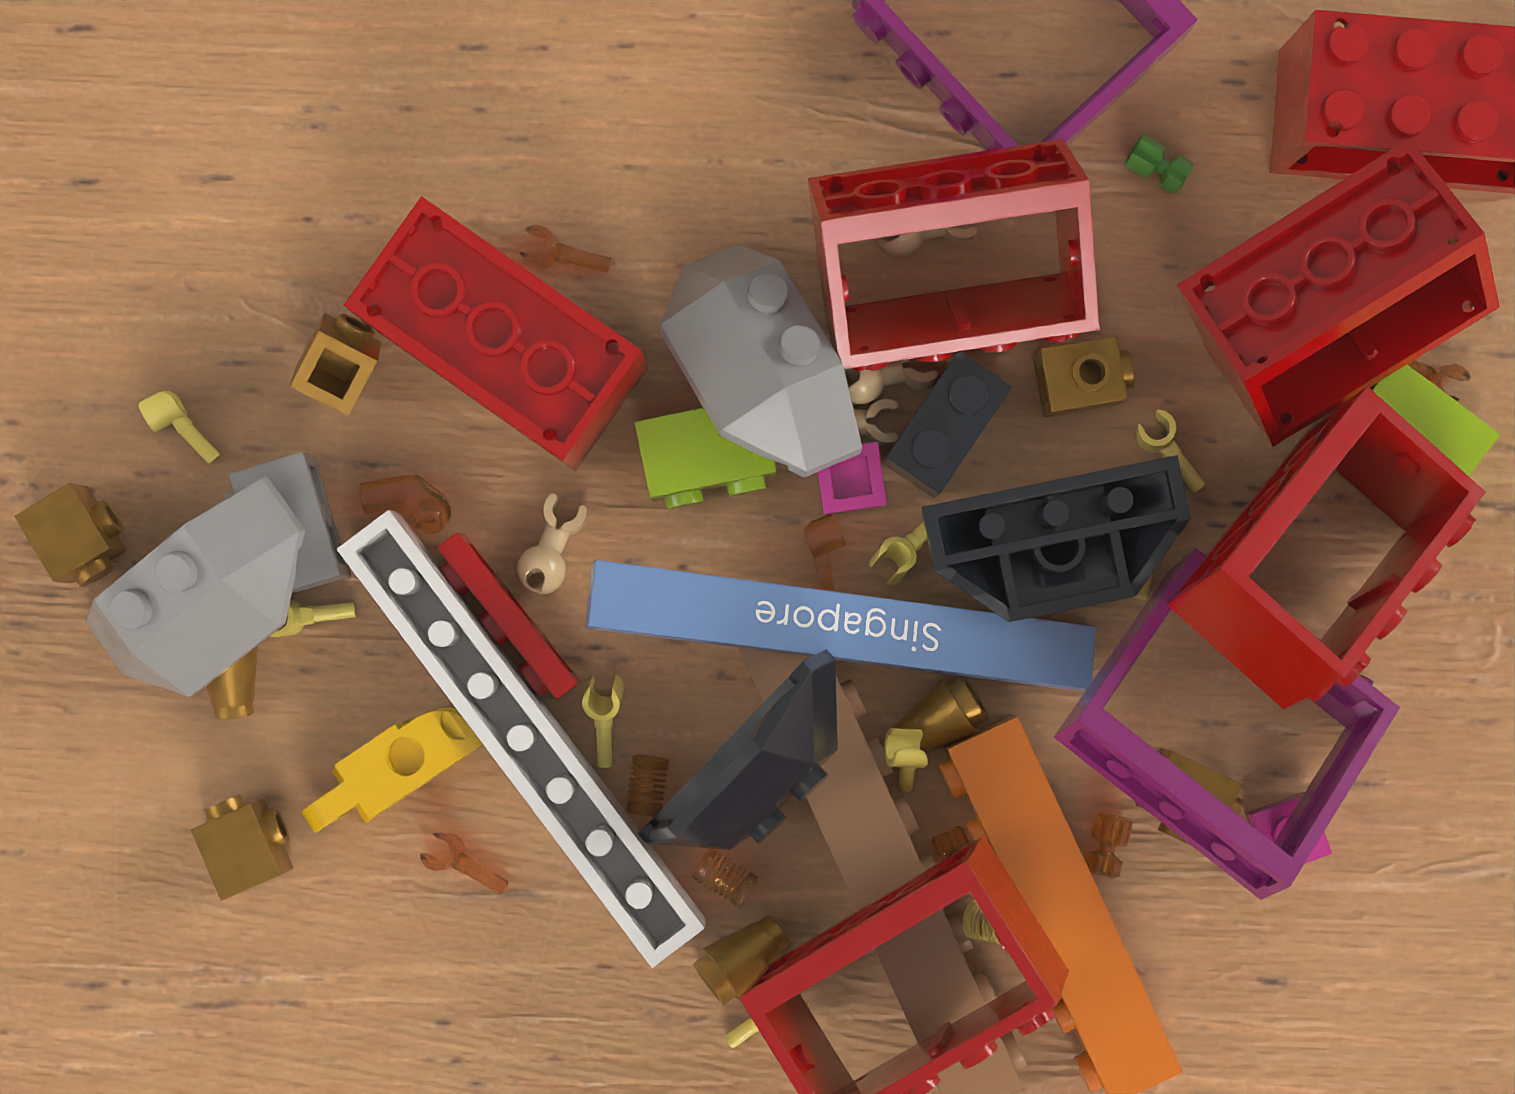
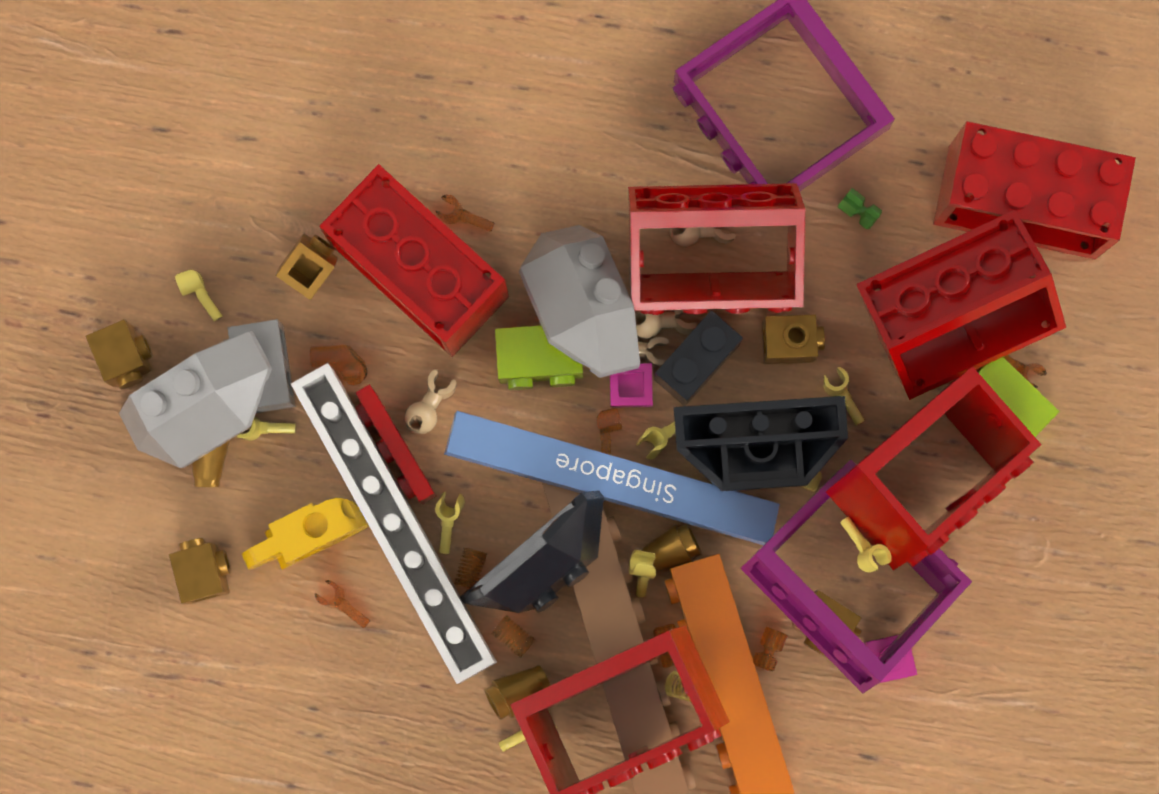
camera: 15 degrees right, 5 degrees down
(1241, 688) = (864, 557): none -> light yellow hand

